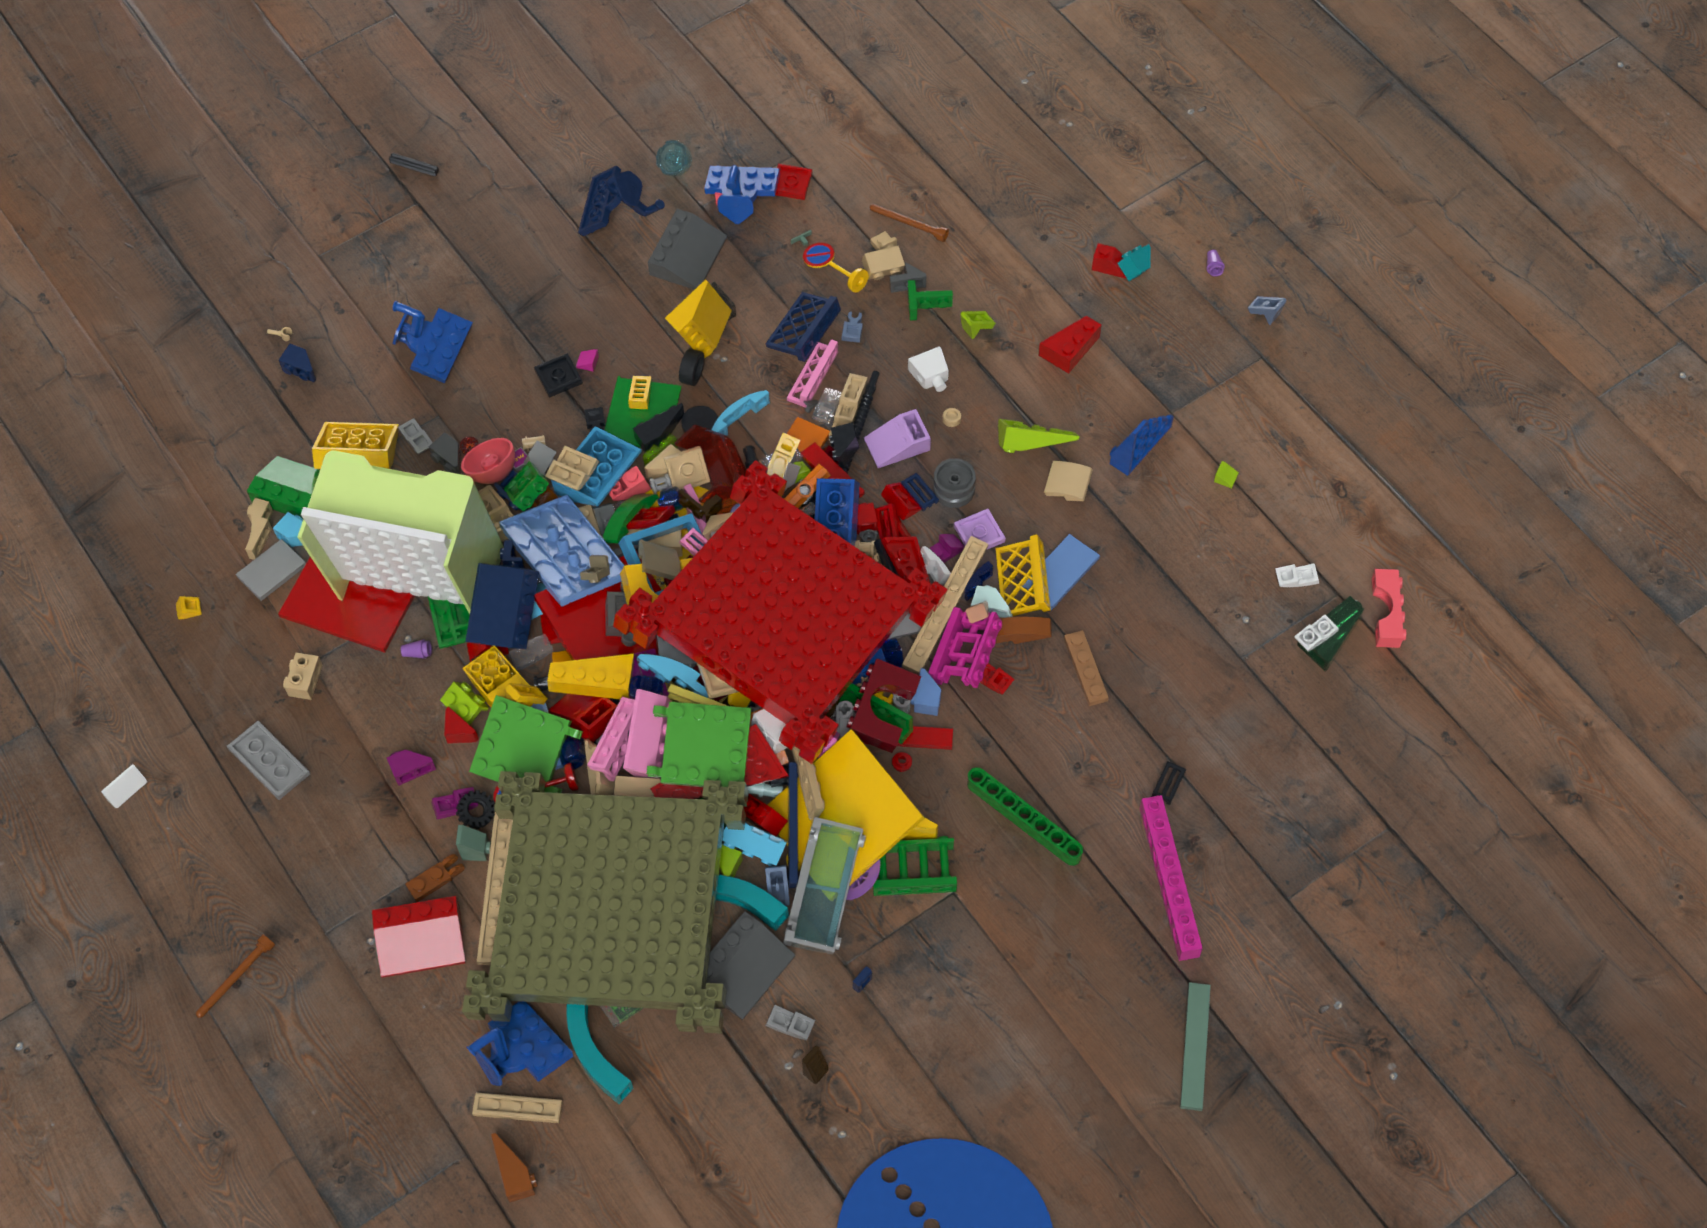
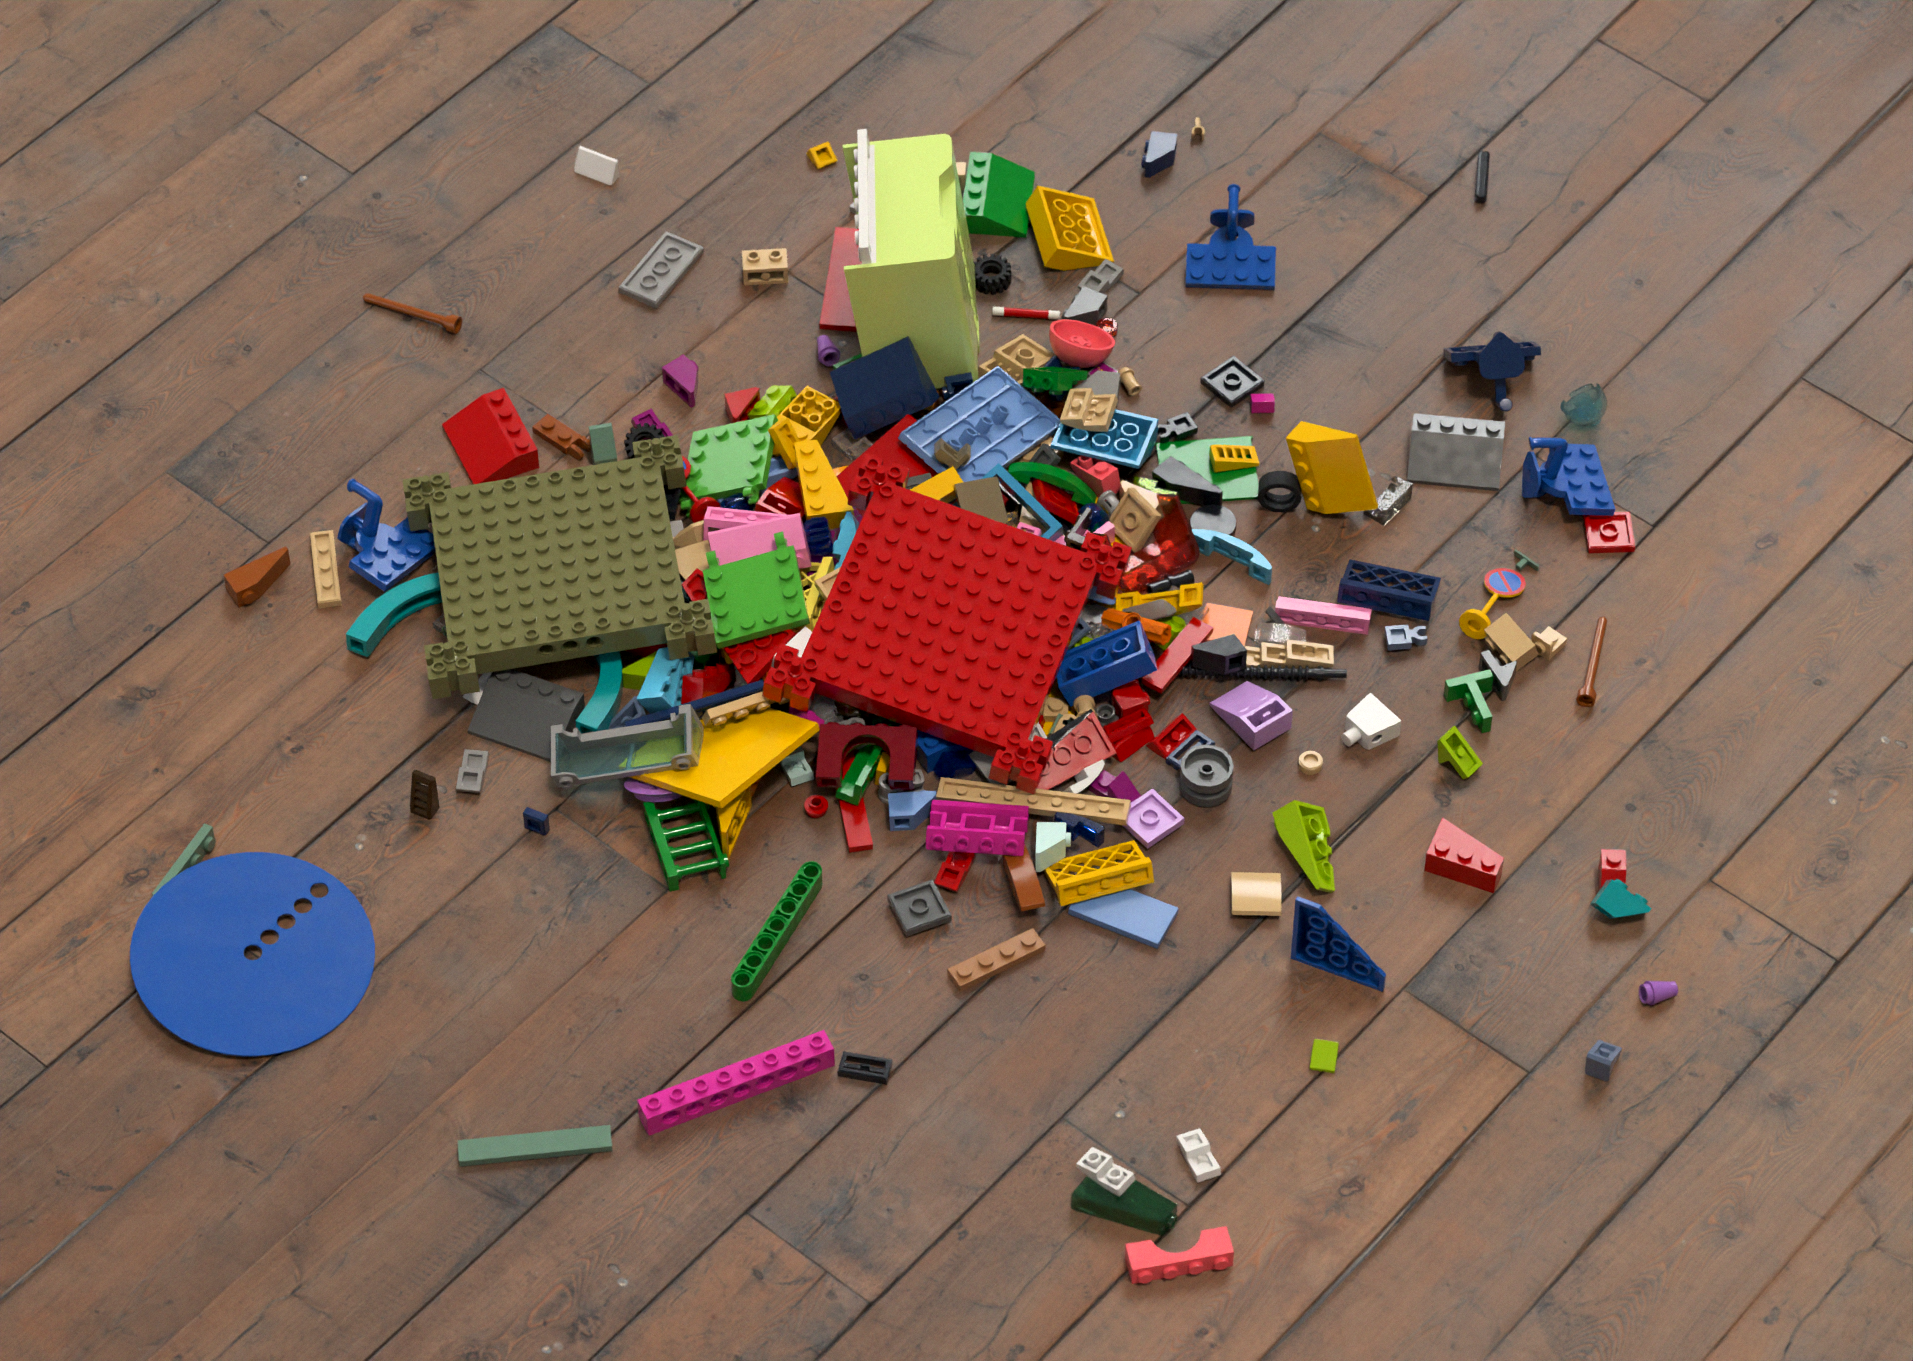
camera: 75 degrees right, 10 degrees down
(977, 612) = (1023, 823): nougat slope -> none
(1025, 709) = (919, 908): none -> dark grey plate

